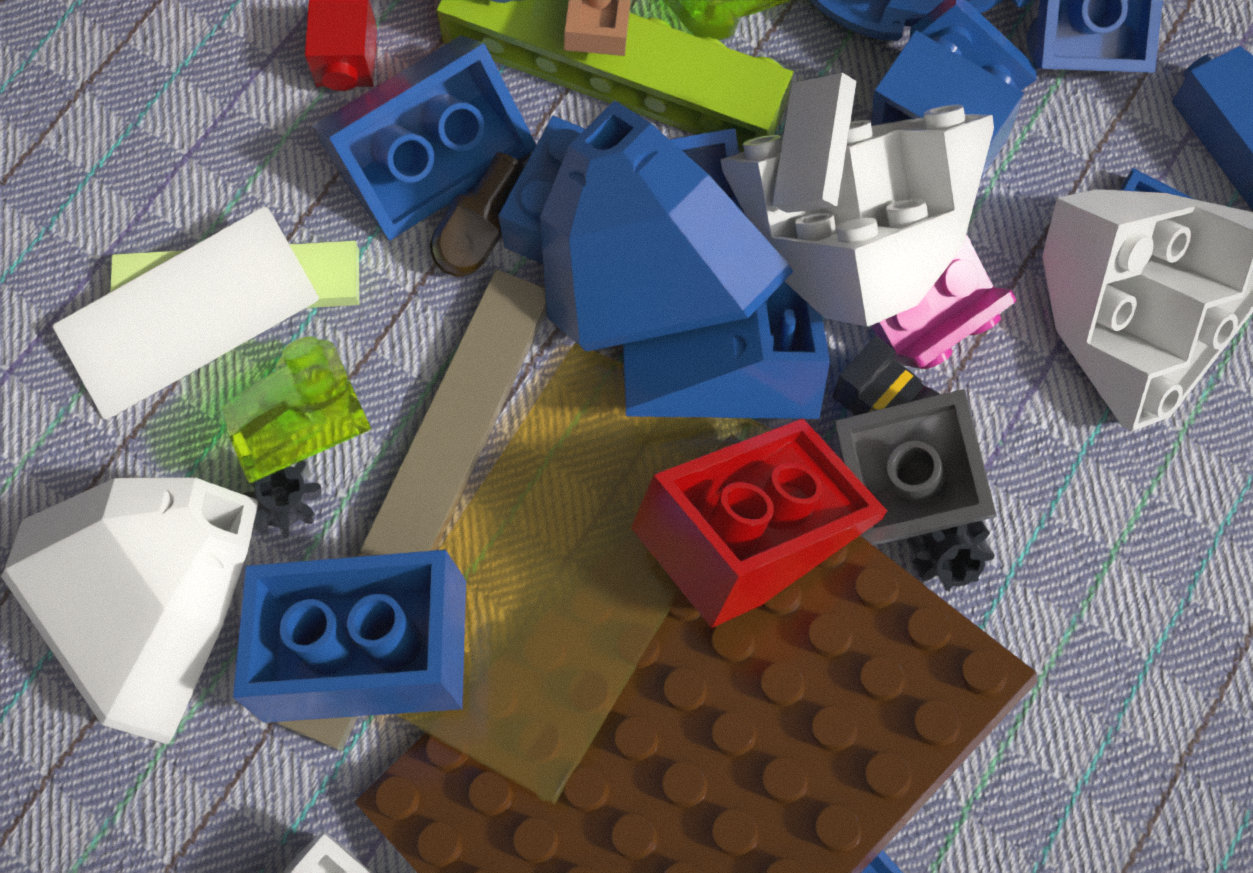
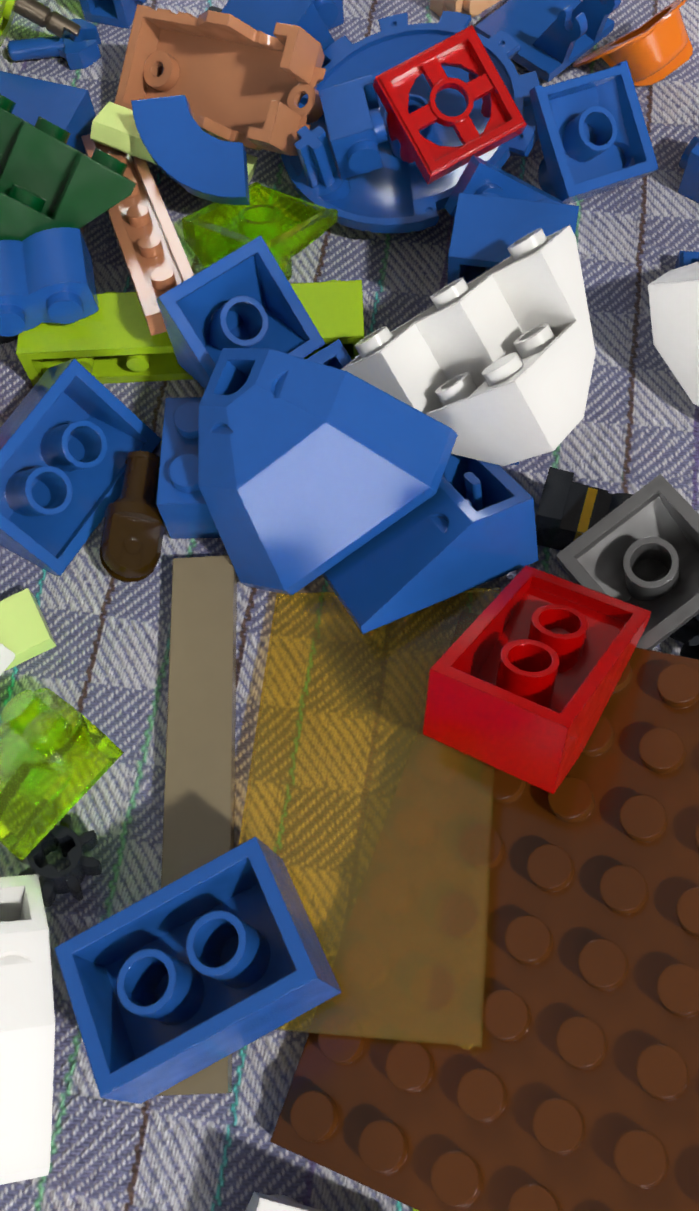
camera: 20 degrees left, 5 degrees down
(653, 66) = (236, 305): none -> blue slope
(814, 143) = (424, 313): white tile -> none
(954, 307) = (595, 441): bracket -> none

